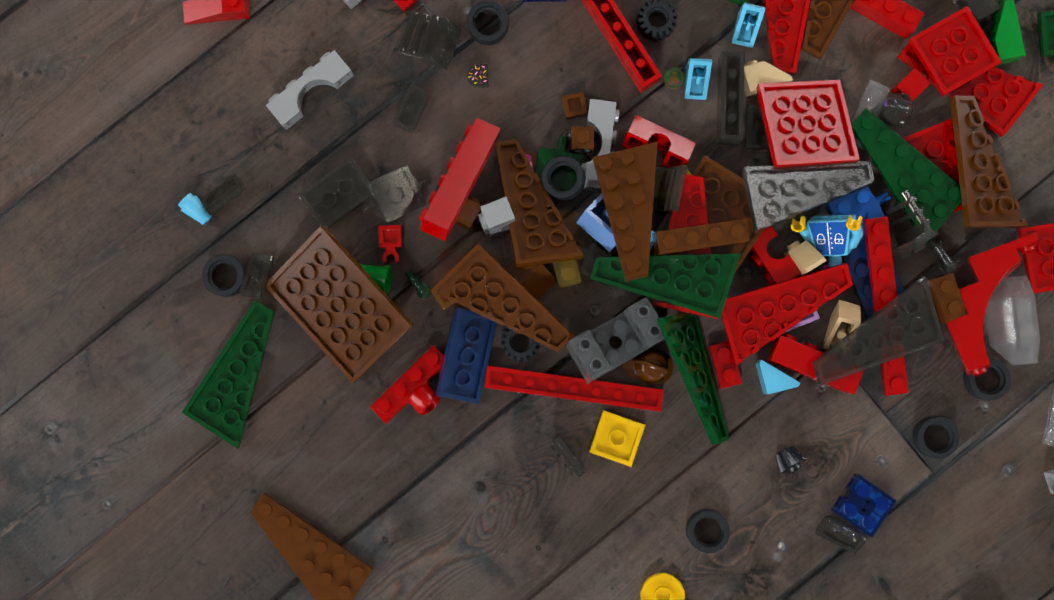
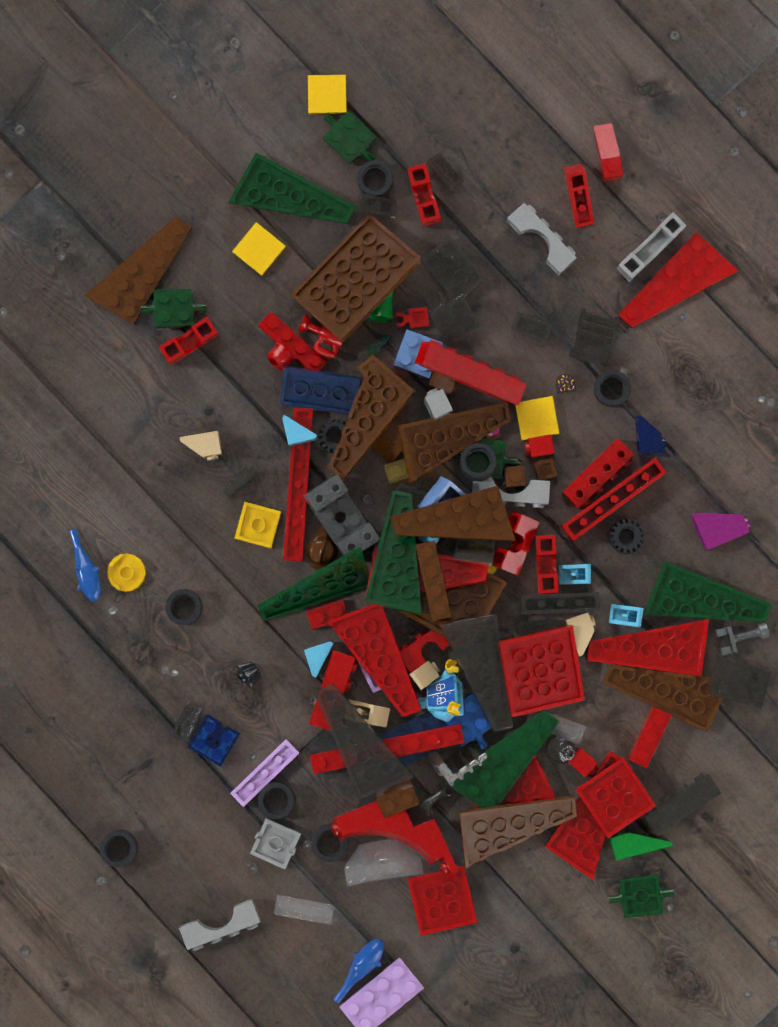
camera: 85 degrees right, 0 degrees up
(121, 324) = (327, 94): none -> yellow tile
(173, 302) = (349, 137): none -> dark green plate
(193, 207) = (431, 148): medium azure cone -> none
(236, 223) = (423, 195): none -> red arch
(261, 43) = (579, 195): none -> red slope
(295, 416) = (259, 249): none -> yellow tile
(357, 521) = (173, 308): none -> dark green plate
(399, 505) = (182, 346): none -> red arch
(403, 346) = (324, 336): none -> red piece
(432, 248) = (408, 353): none -> medium blue brick
(515, 110) = (537, 418): none -> yellow tile
(515, 387) = (296, 433): none -> medium azure slope
(521, 494) = (204, 444): none -> tan slope
(548, 108) = (539, 446): none -> red brick
(584, 45) = (597, 473): none -> red brick
(673, 111) = (546, 564): none -> red arch
(674, 78) = (576, 555): clear smoke tile -> none
(903, 449) = (264, 772): none -> lavender plate
(985, 441) = (275, 843): none -> light grey plate

